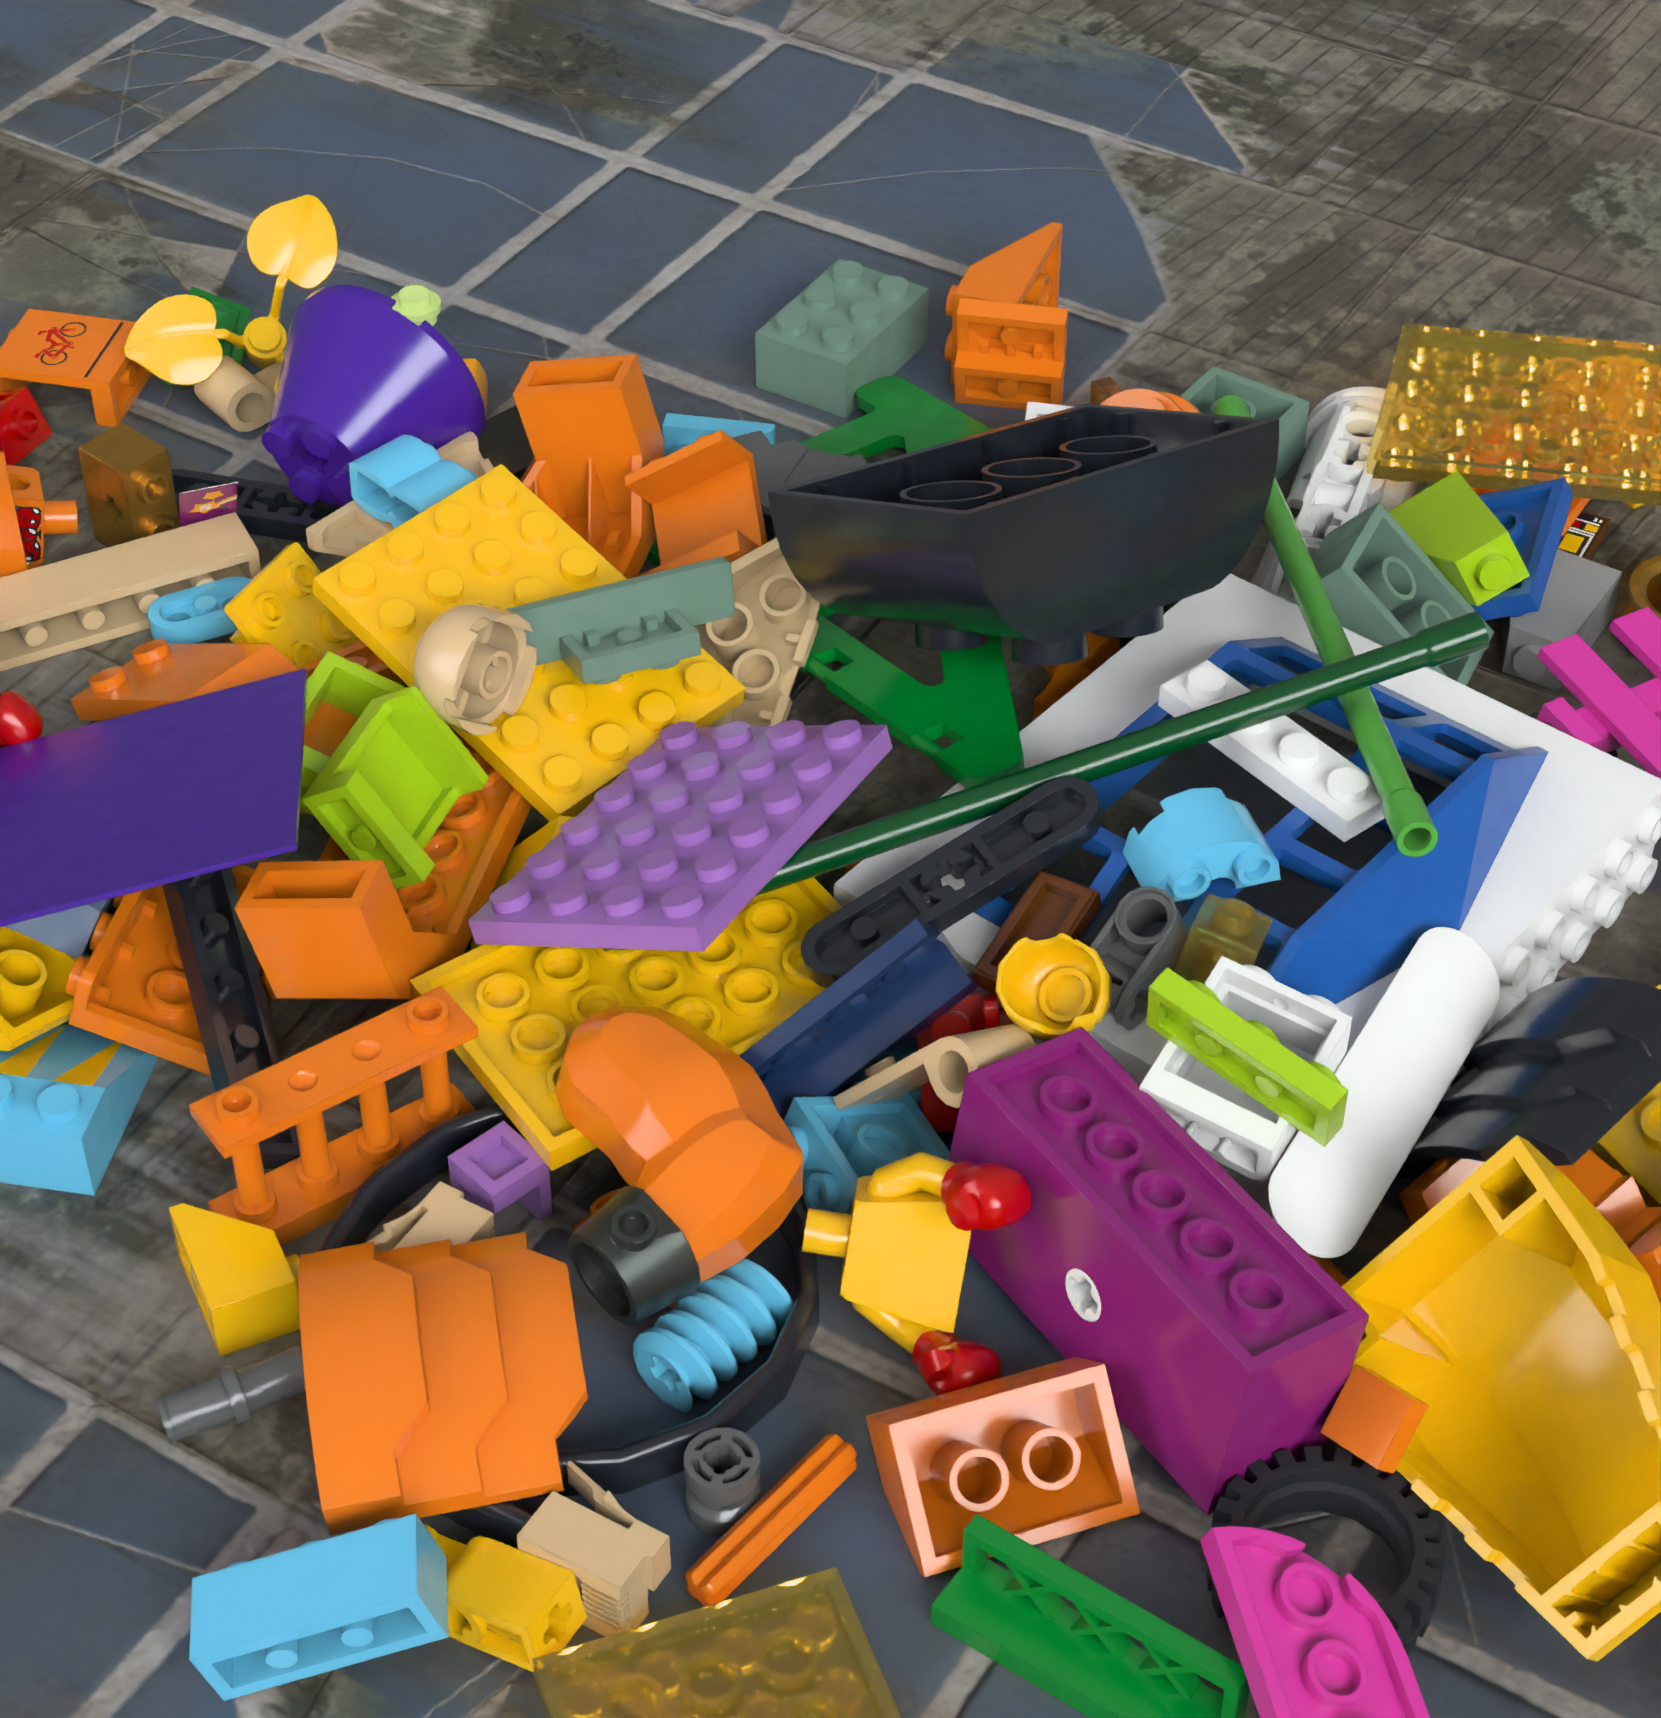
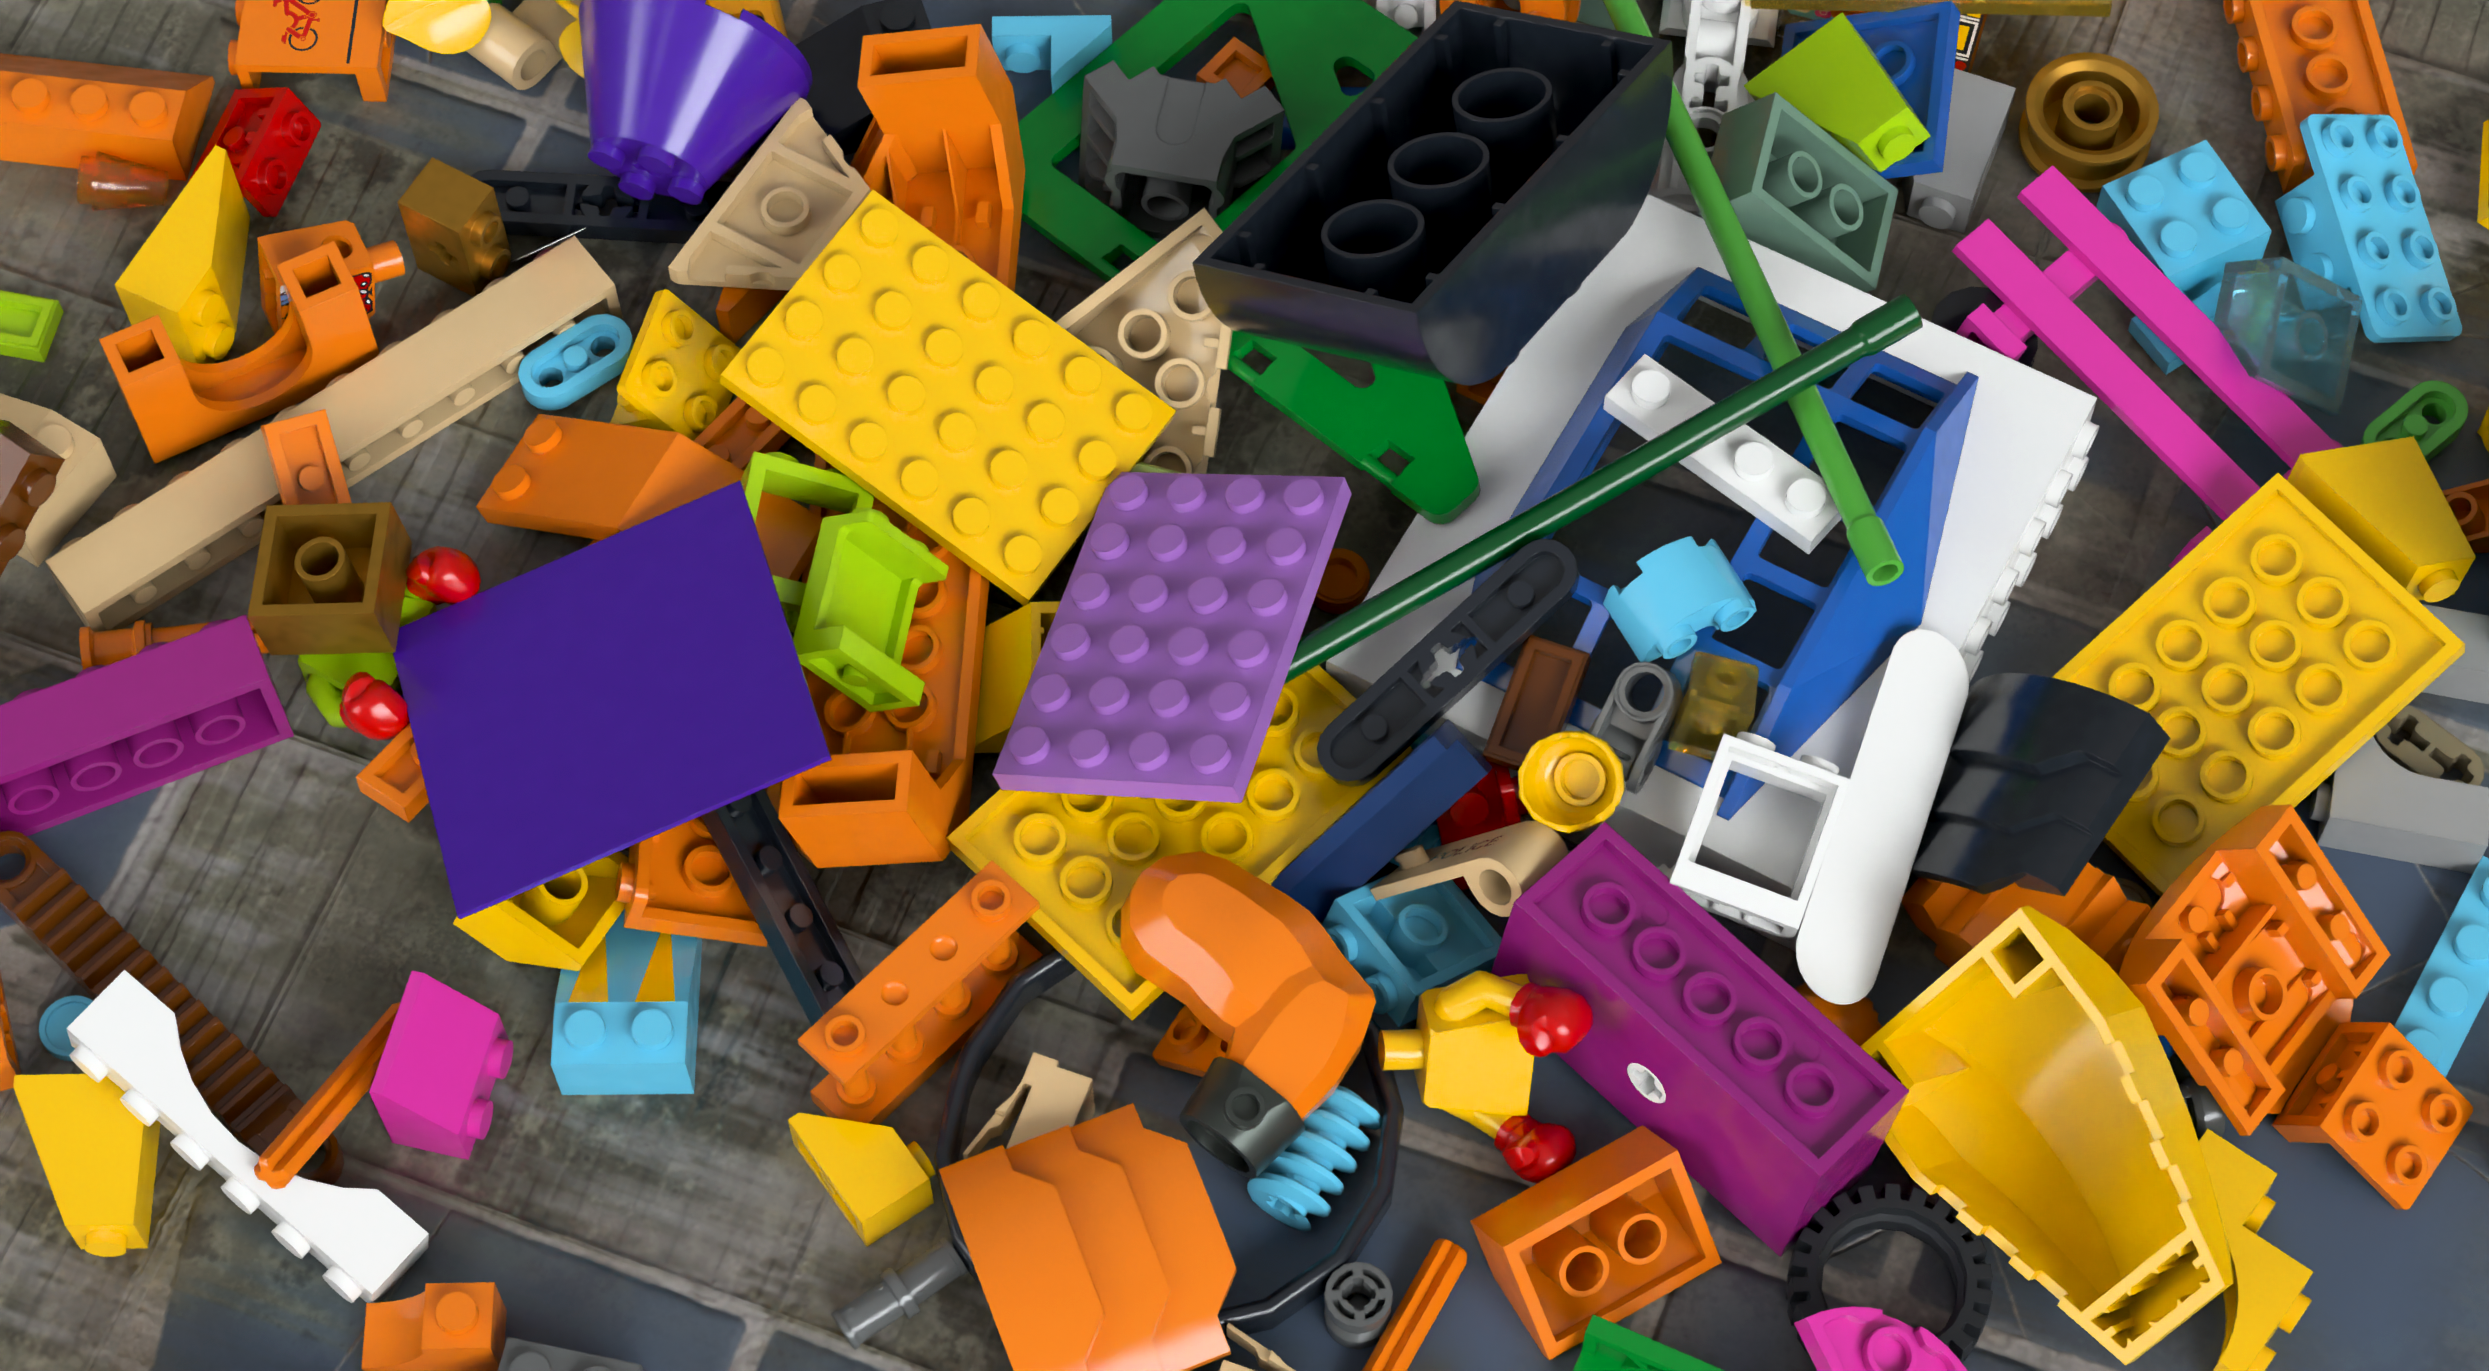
camera: 10 degrees left, 20 degrees up
(404, 479) = (775, 208): medium azure brick -> none
(474, 665) = (915, 467): tan cylinder -> none
(502, 1170) = (1078, 1022): medium lavender panel -> none
(630, 621) = (1048, 386): sand green bracket -> none
(702, 502) = (1082, 198): orange panel -> none
(1247, 1056) = (1766, 846): lime plate -> none
(1374, 1418) = (1917, 1160): orange tile -> none

